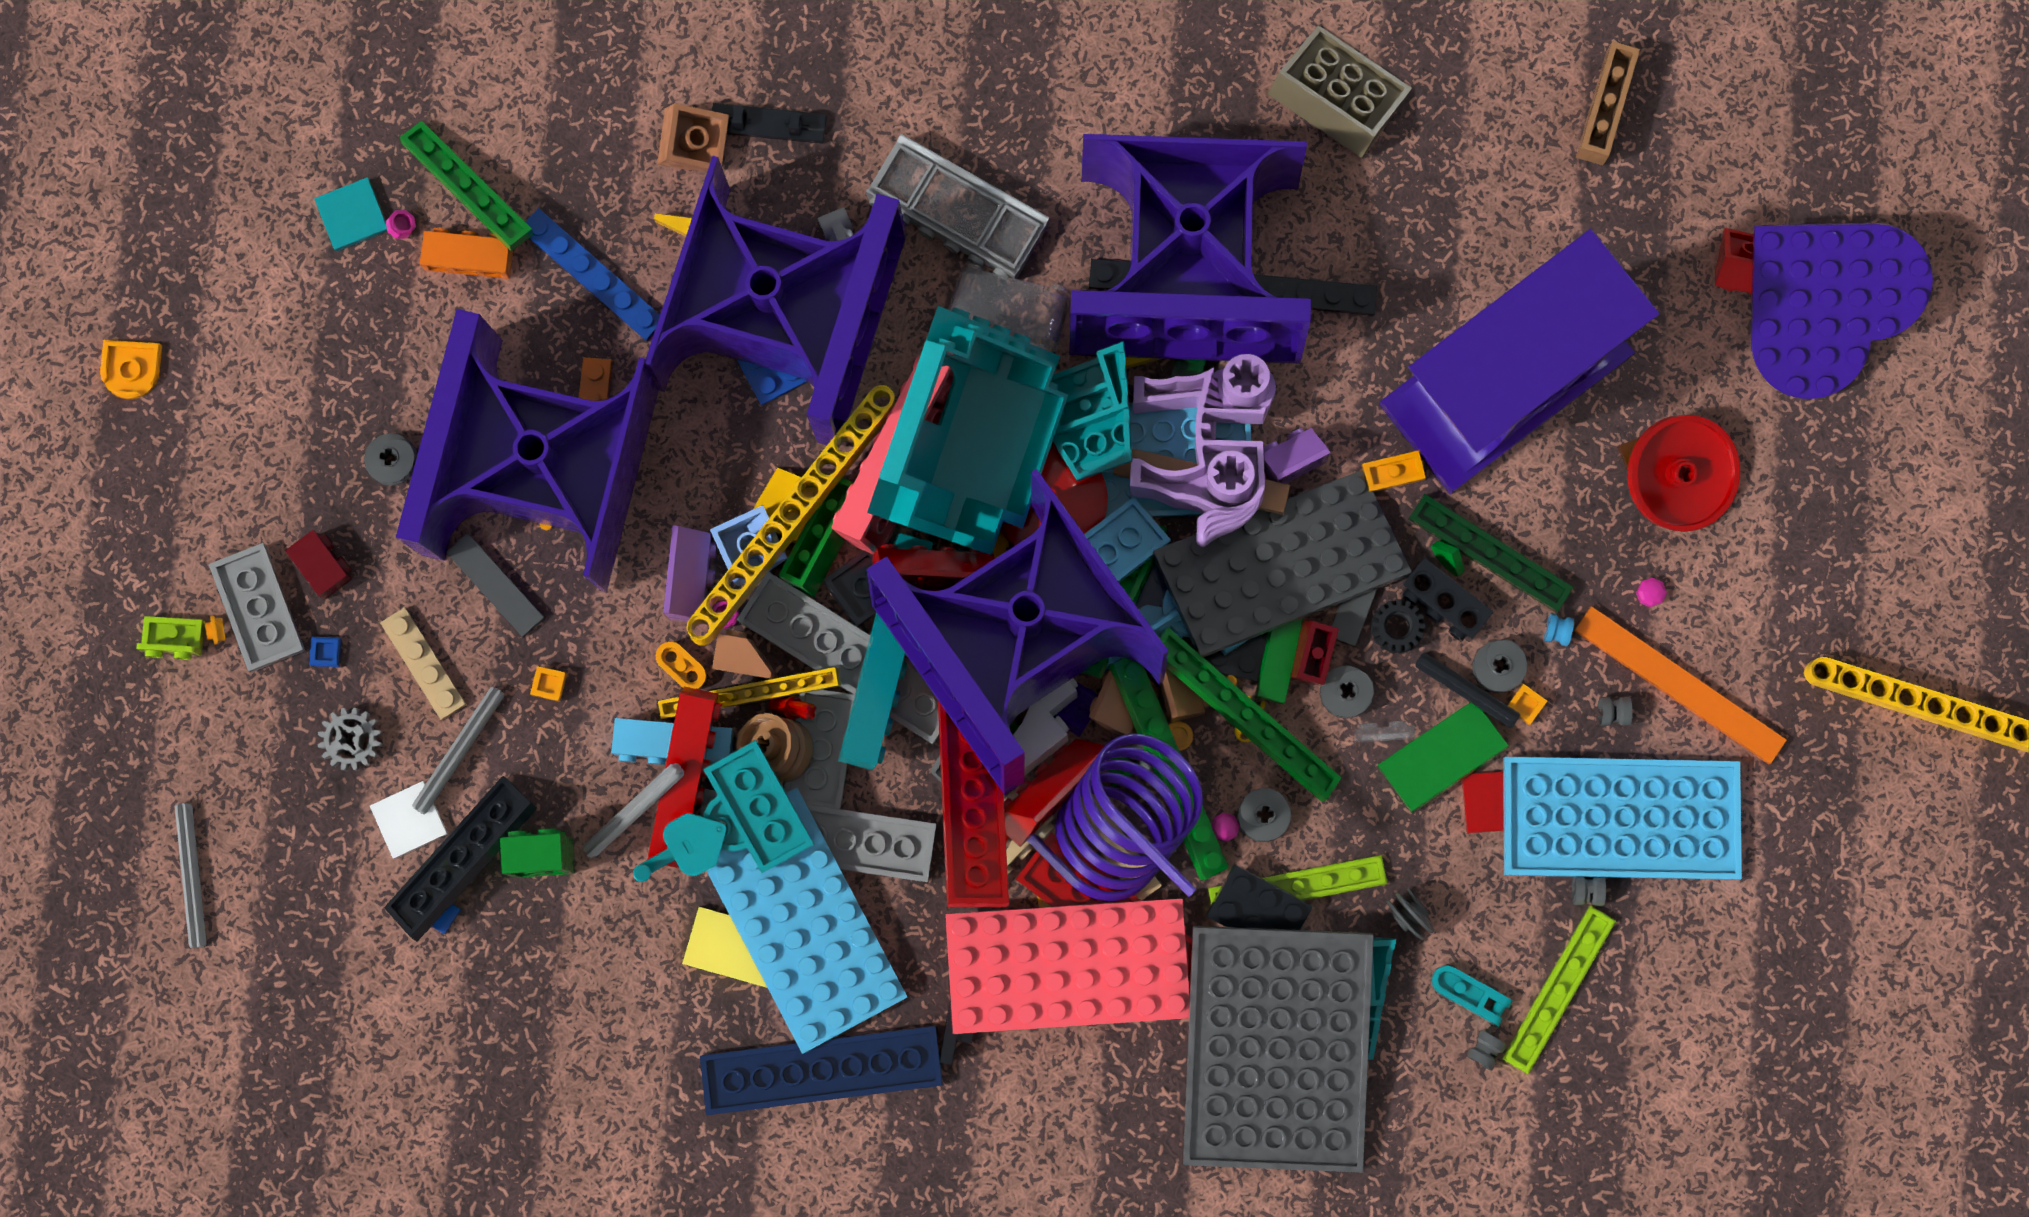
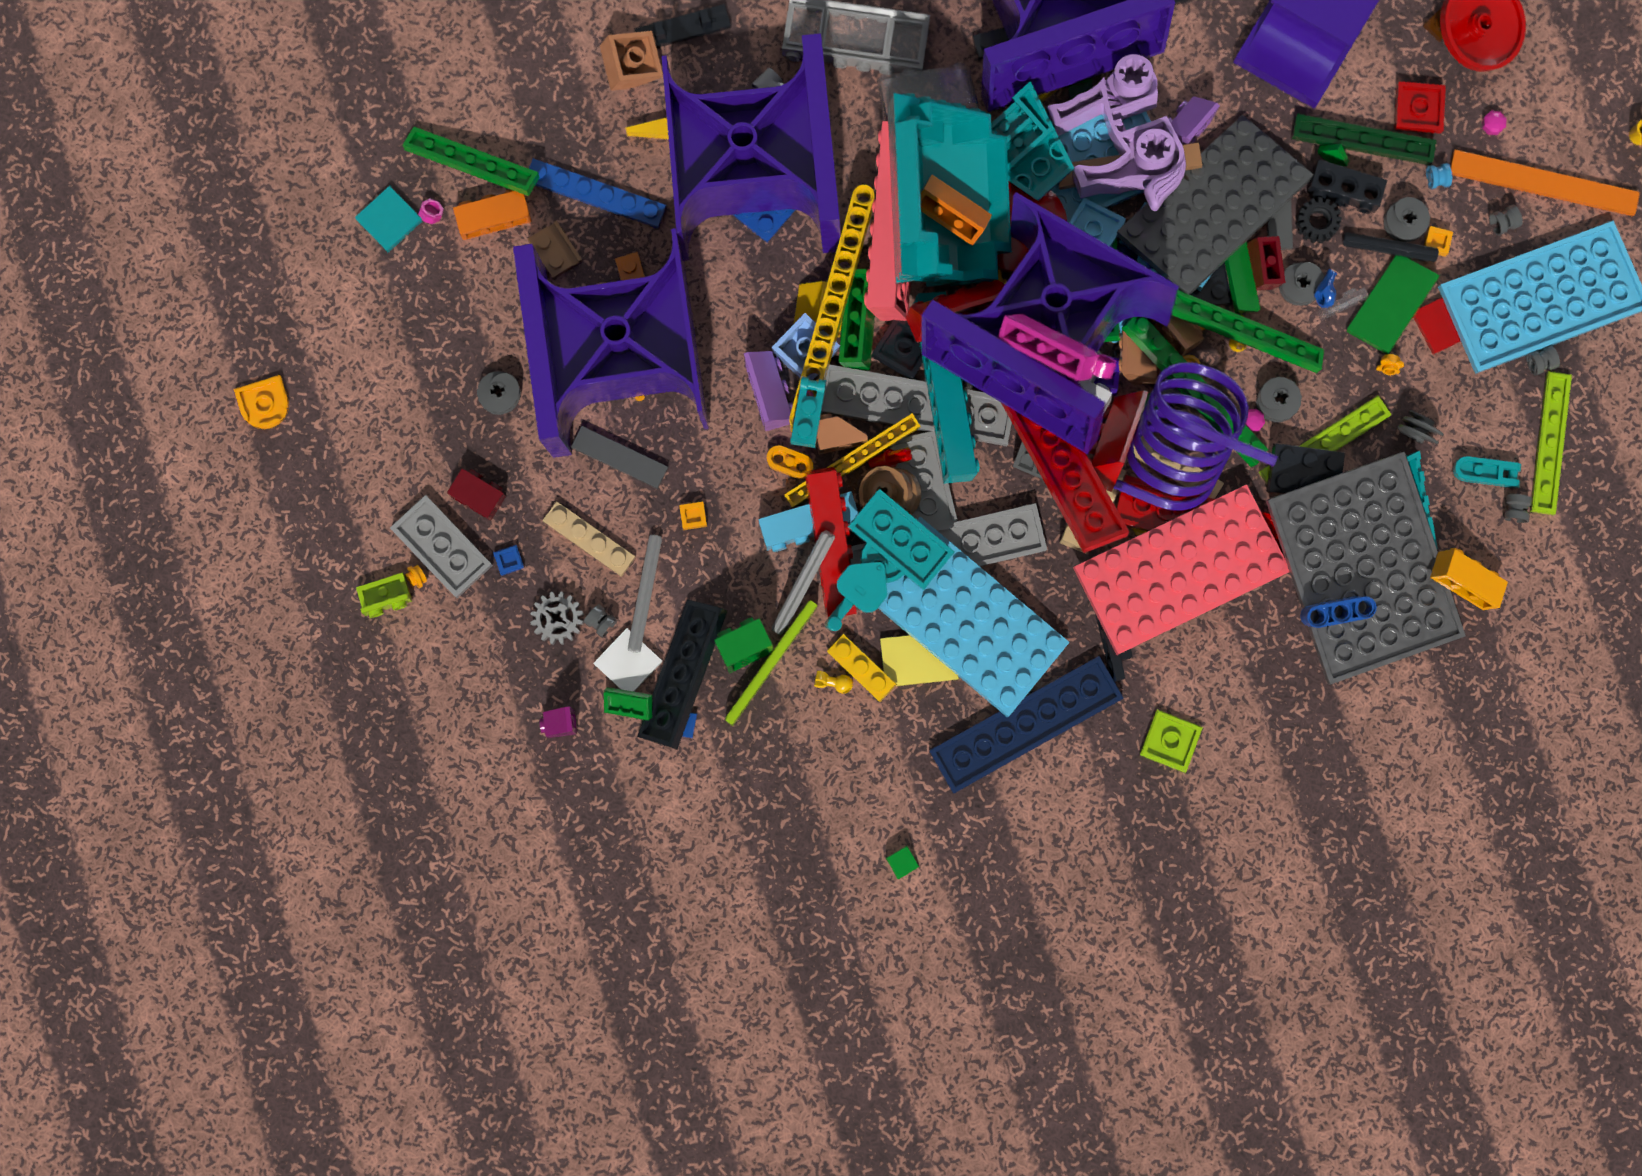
camera: 30 degrees left, 0 degrees up
(190, 875) = (475, 772): light grey axle -> none
(303, 858) = (558, 722): none -> magenta slope
(387, 867) = (628, 703): none -> green plate
(396, 761) = (600, 620): none -> dark grey wheel
(520, 321) = (555, 250): none -> medium nougat plate
(564, 885) = (771, 663): none -> lime tile
(618, 1169) = (902, 862): none -> green slope
(635, 940) = (842, 683): none -> yellow arm
(664, 931) = (861, 667): none -> yellow plate
(710, 623) = (808, 413): none -> teal plate
(971, 455) = (953, 210): none -> orange brick
(977, 1155) = (1171, 741): none -> lime tile
(994, 668) = (1054, 348): none -> dark pink hinge
(1233, 1096) = (1349, 611): none -> blue beam
(1366, 712) = (1325, 292): none -> blue animal
(1391, 1109) = (1469, 579): none -> light orange brick
(1394, 471) = (1267, 106): light orange plate -> none
(1409, 825) = (1390, 364): none -> light orange plate
(1571, 541) = (1419, 107): none -> red plate

